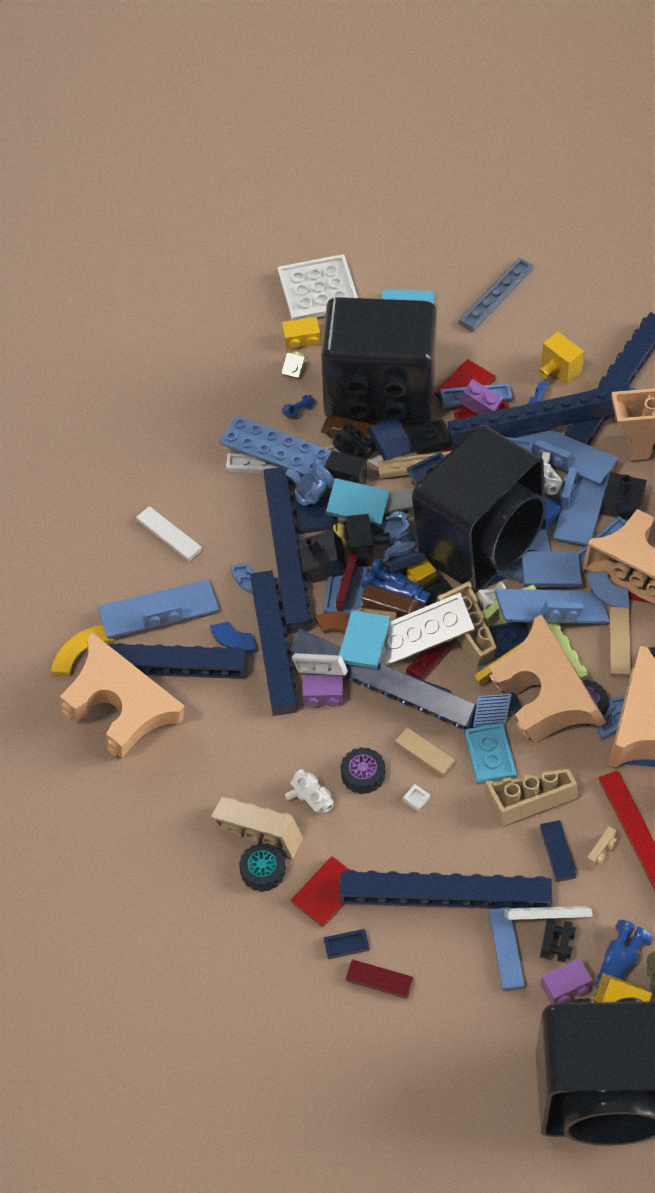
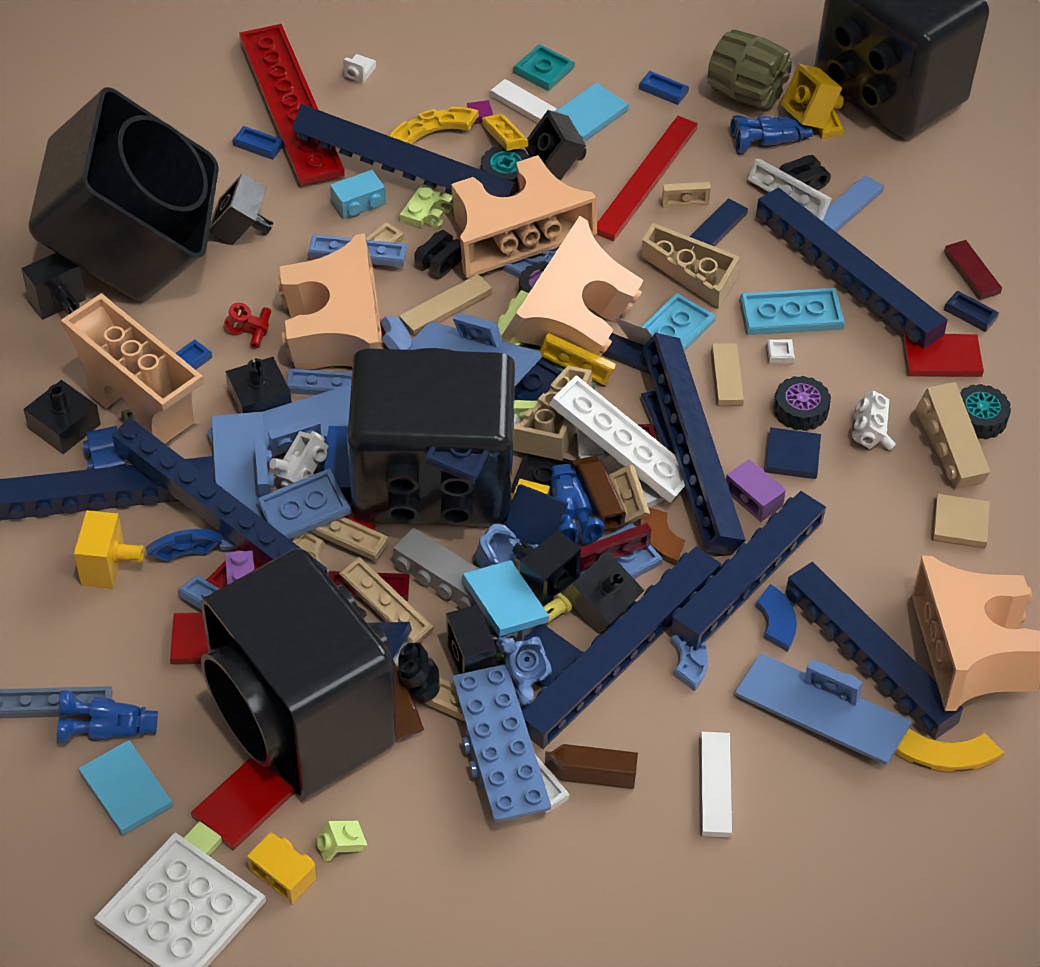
camera: 135 degrees left, 5 degrees down
(201, 786) = (961, 520): none -> tan tile
(228, 486) = (593, 765): none -> reddish brown piece
(291, 410) = (420, 786): blue bar -> none
(319, 664) = (739, 495): white tile -> none
(332, 738) = (793, 453): none -> dark blue tile
(364, 639) = (678, 464): medium azure tile -> none
(443, 833) = (791, 311): none -> medium azure tile
(454, 311) = (108, 719): none -> blue piece
(566, 982) = (833, 149): medium lavender brick -> none

